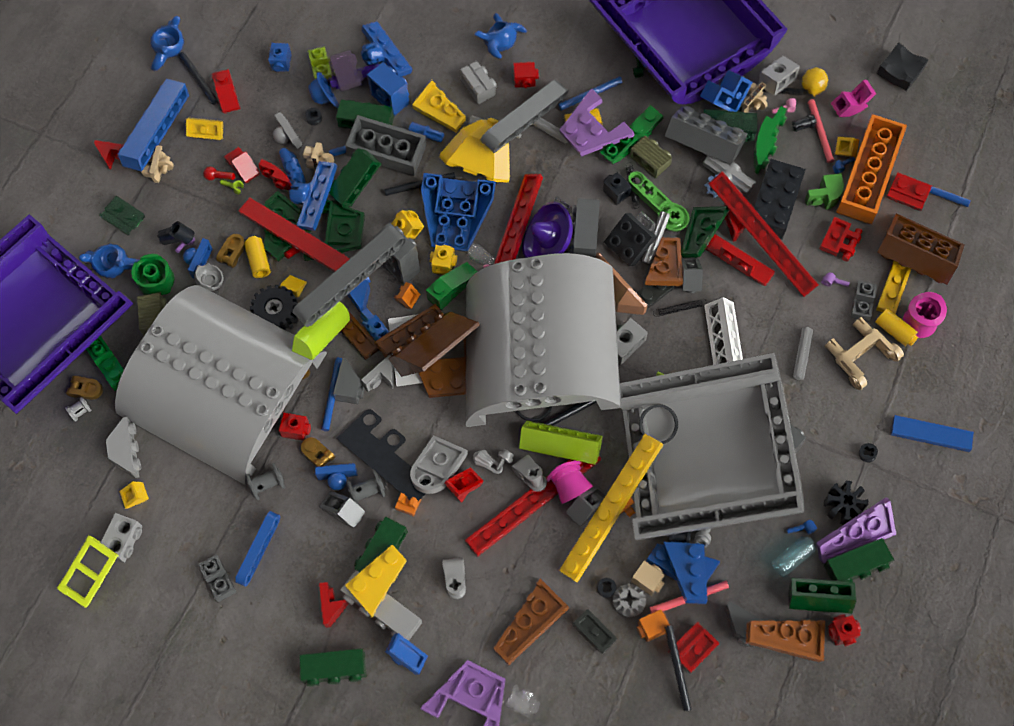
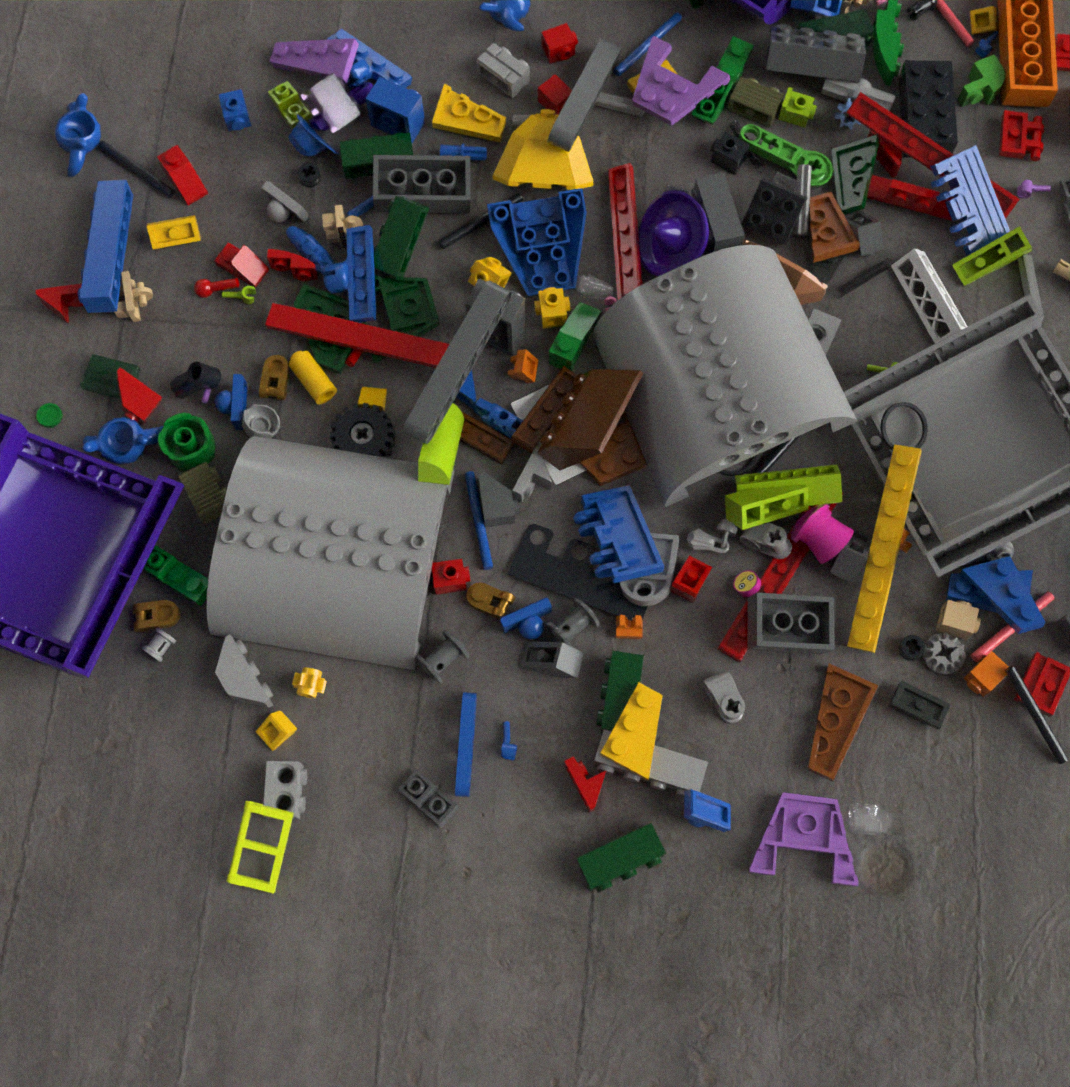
camera: 20 degrees left, 5 degrees up
(71, 228) = (49, 415): none -> green piece
(131, 235) = (136, 398): none -> red slope
(167, 469) = (309, 682): none -> yellow gear
(285, 562) = (508, 750): none -> blue hand
(349, 36) = (316, 57): none -> medium lavender wing
(426, 435) = (619, 526): none -> blue hinge
(503, 501) = (747, 583): none -> tile
(504, 107) = (553, 94): none -> red brick
(520, 539) = (790, 623): none -> dark grey brick
(534, 447) = (764, 505): none -> lime slope
(679, 170) = (797, 108): none -> lime brick
(781, 275) = (972, 200): none -> hinge
(783, 321) = (993, 256): none -> lime slope

